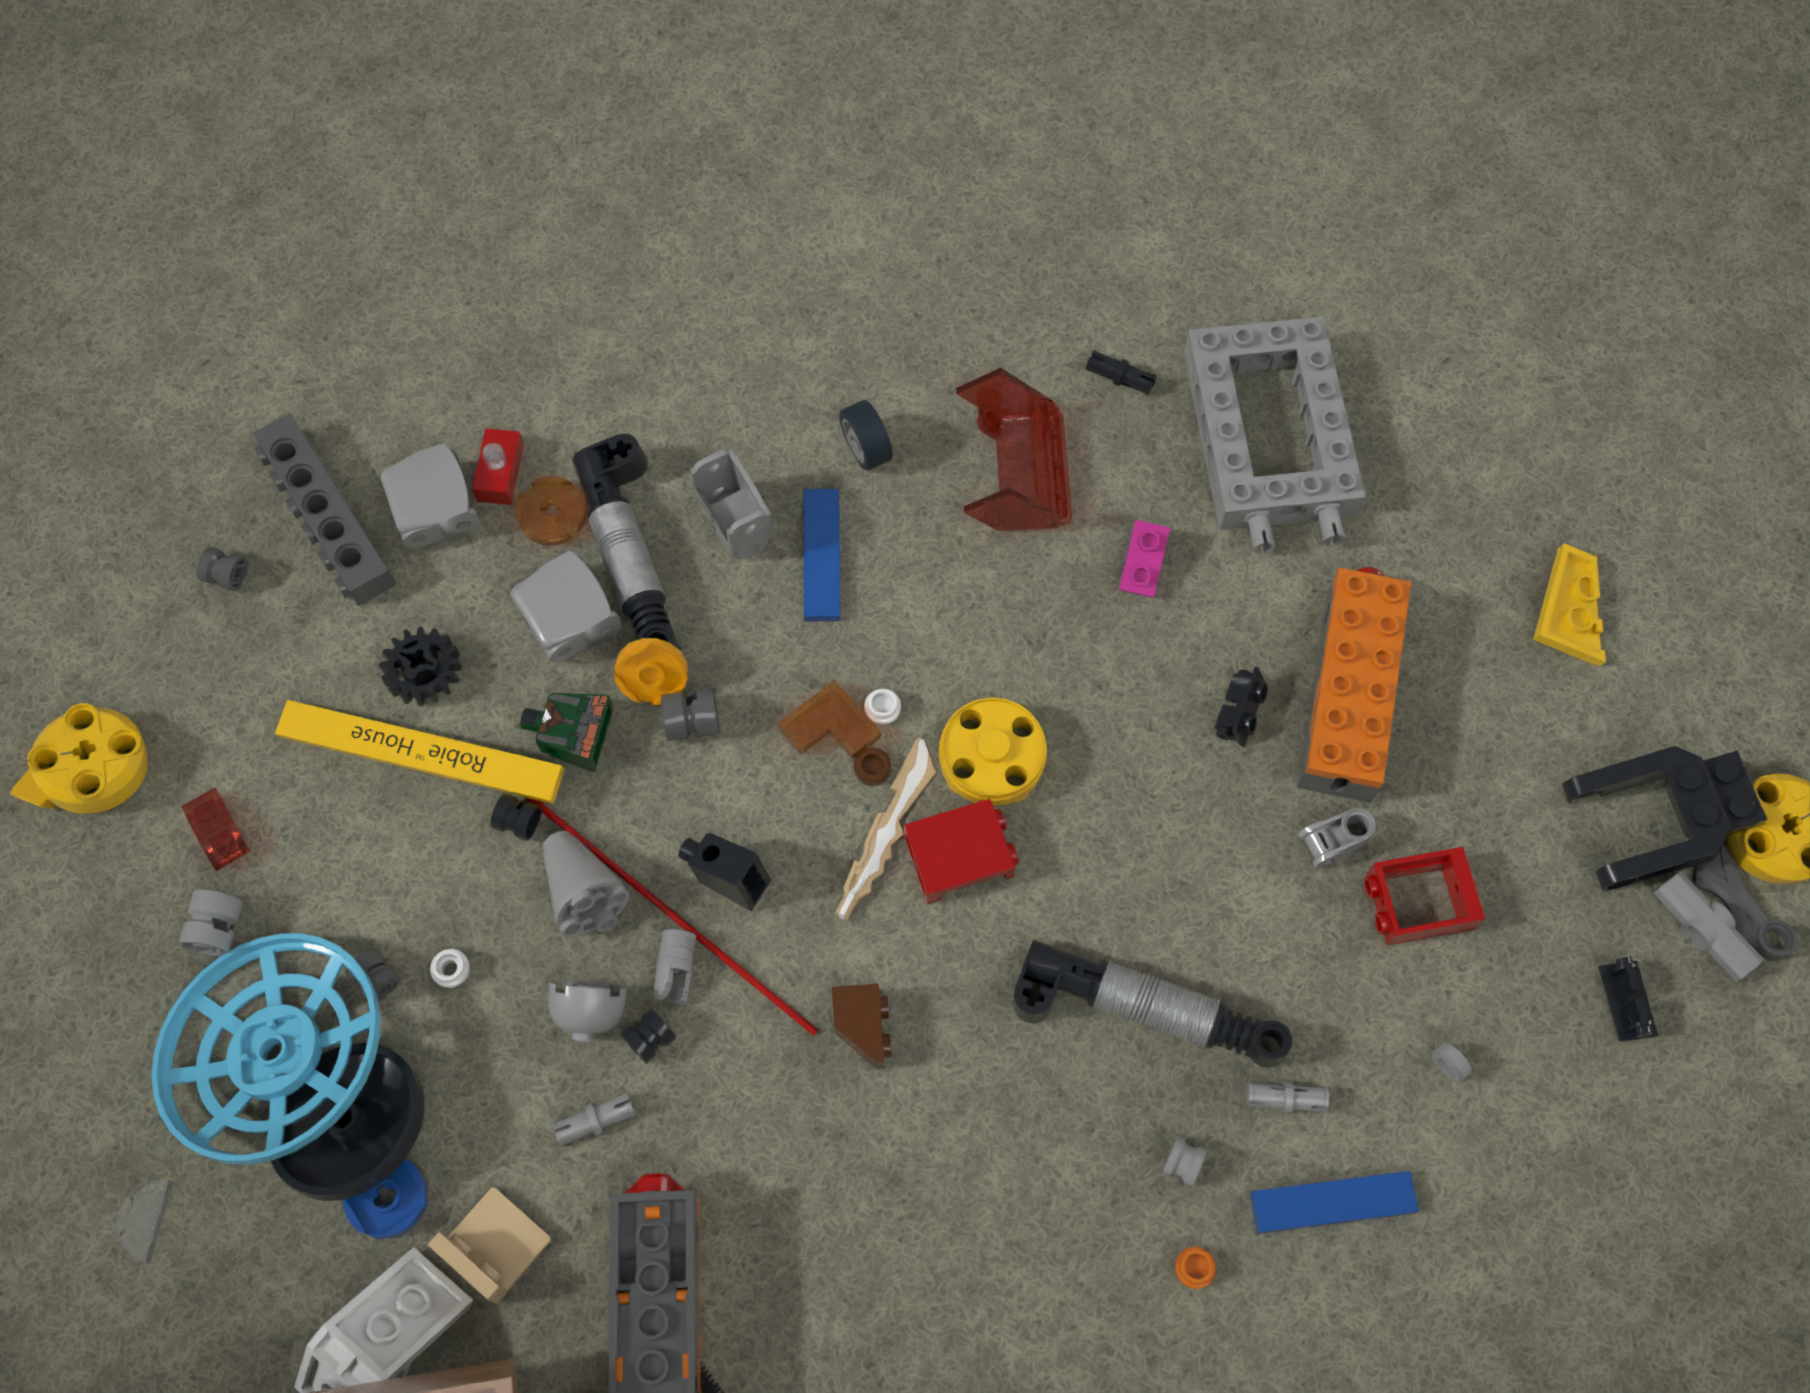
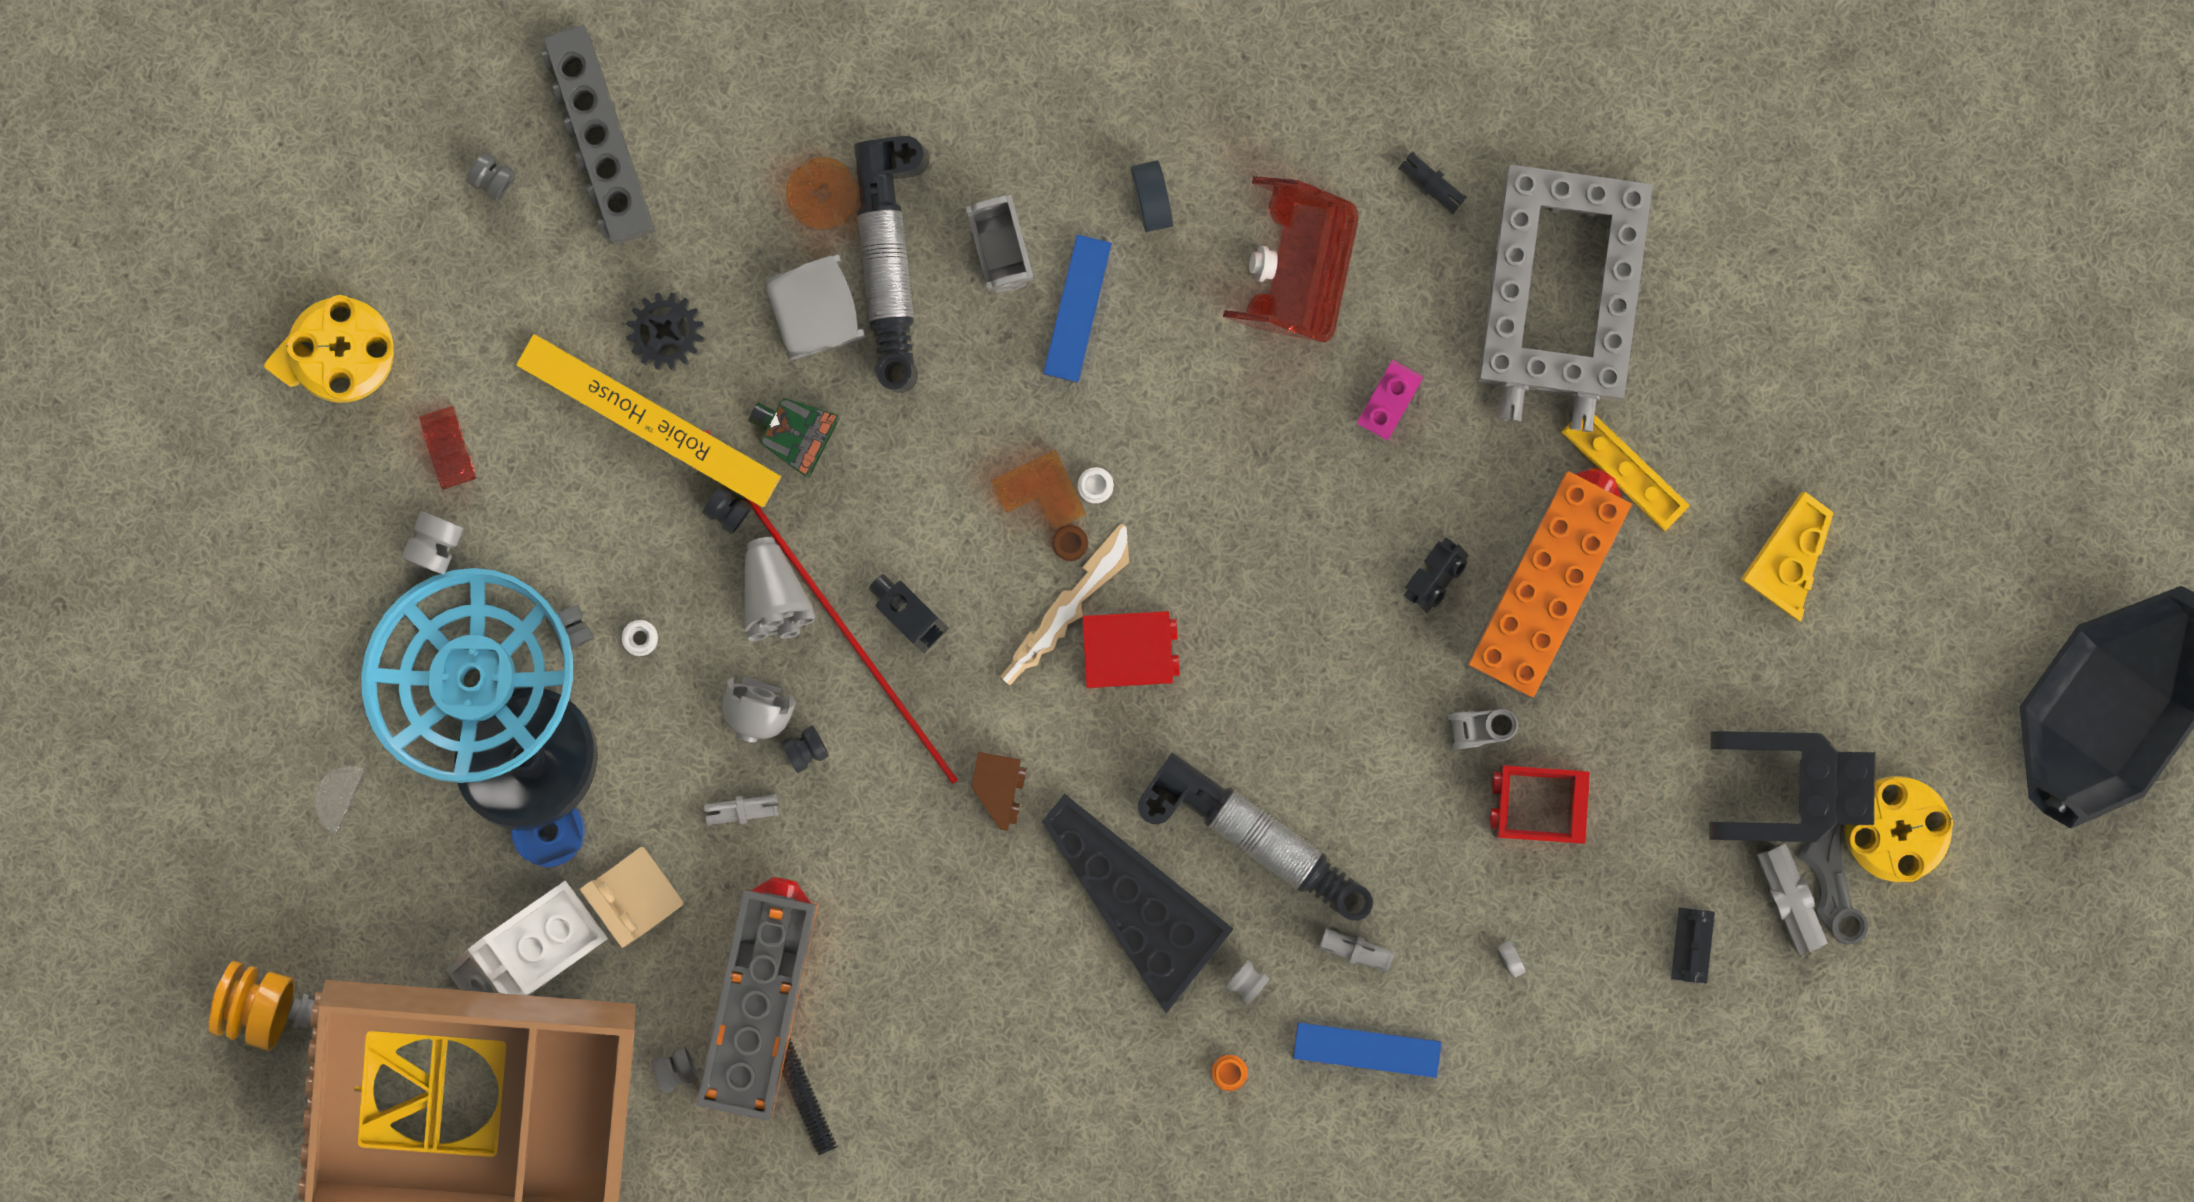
camera: 15 degrees right, 20 degrees up
(429, 497) = (705, 152): light grey piece -> none
(498, 466) = (779, 130): red piece -> none
(650, 669) = (883, 399): light orange tile -> none
(674, 959) = (842, 691): light grey hinge -> none
(690, 714) = (910, 450): dark grey wheel -> none
(987, 472) = (1263, 263): none -> white plate
(992, 751) = (1186, 561): yellow piece -> none
(1058, 1115) = (1151, 915): none -> black wing
(1427, 588) = (1631, 473): none -> yellow tile

